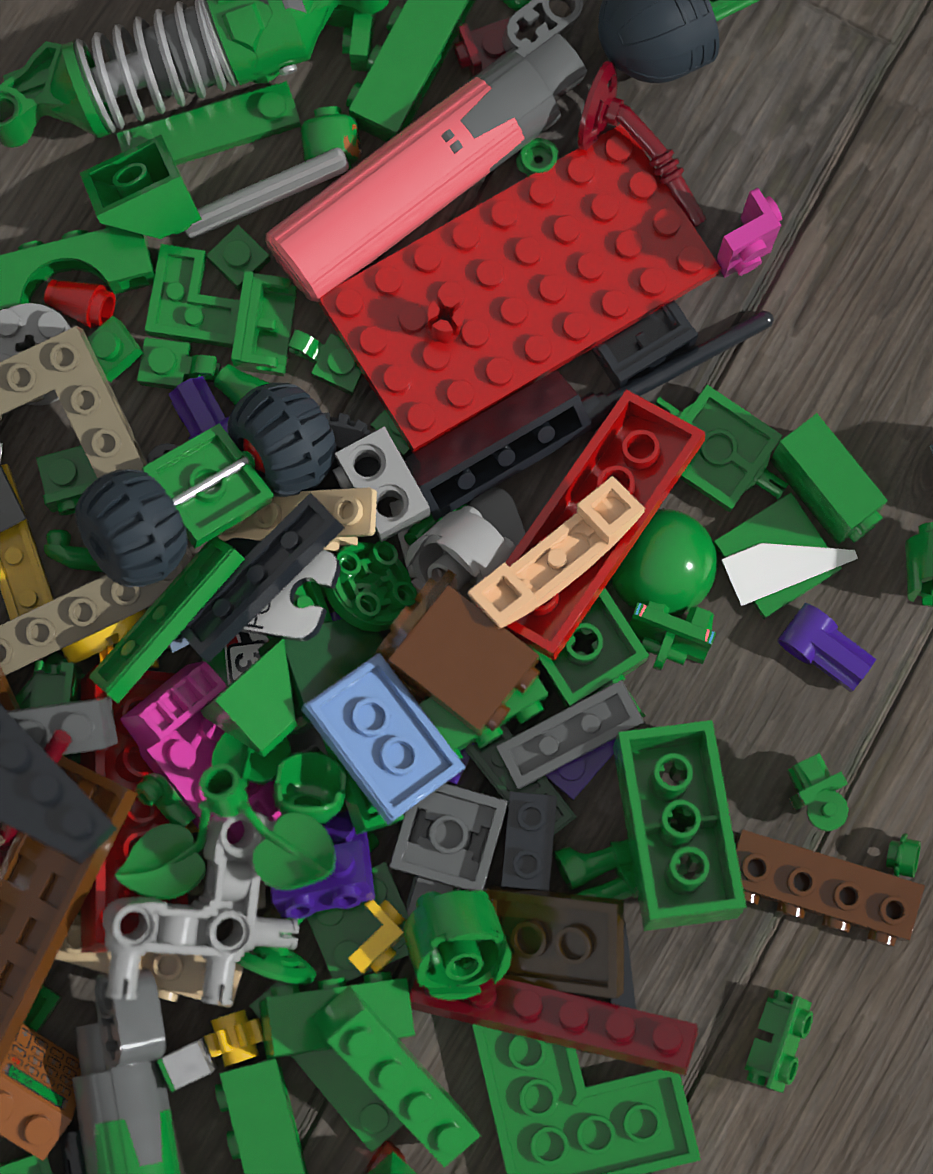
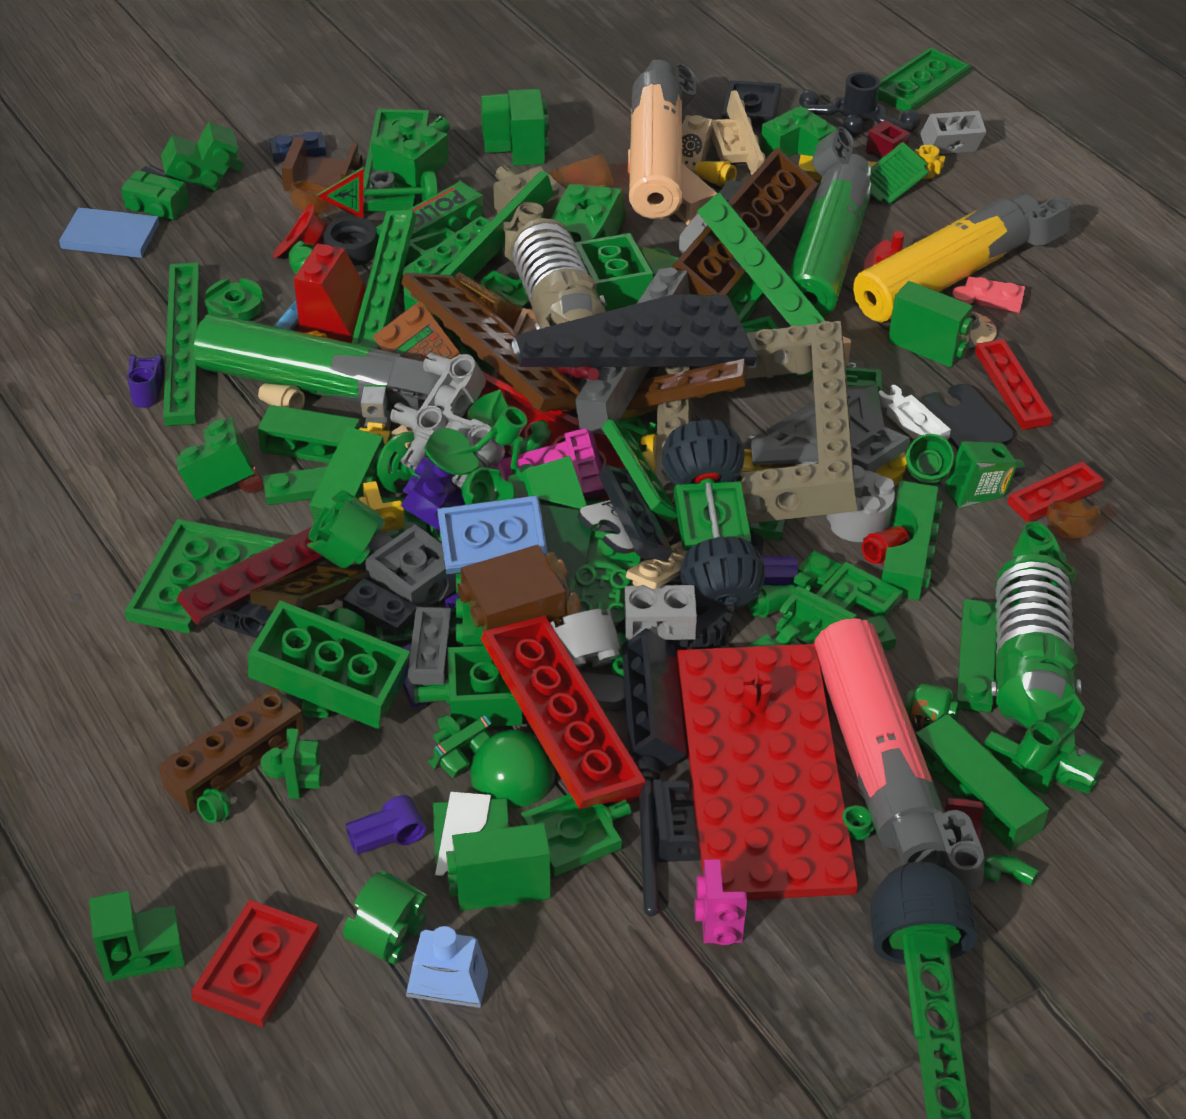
camera: 115 degrees right, 35 degrees down
(114, 348) = (843, 546): green plate -> none
(141, 191) = (941, 583): green slope -> none
(269, 191) = (909, 654): light grey axle -> none
(396, 1076) = (291, 477): green brick -> none
(560, 557) = (544, 657): light nougat slope -> none
(605, 108) = (862, 866): dark red dish -> none
(778, 1059) = (155, 687): green hinge -> none

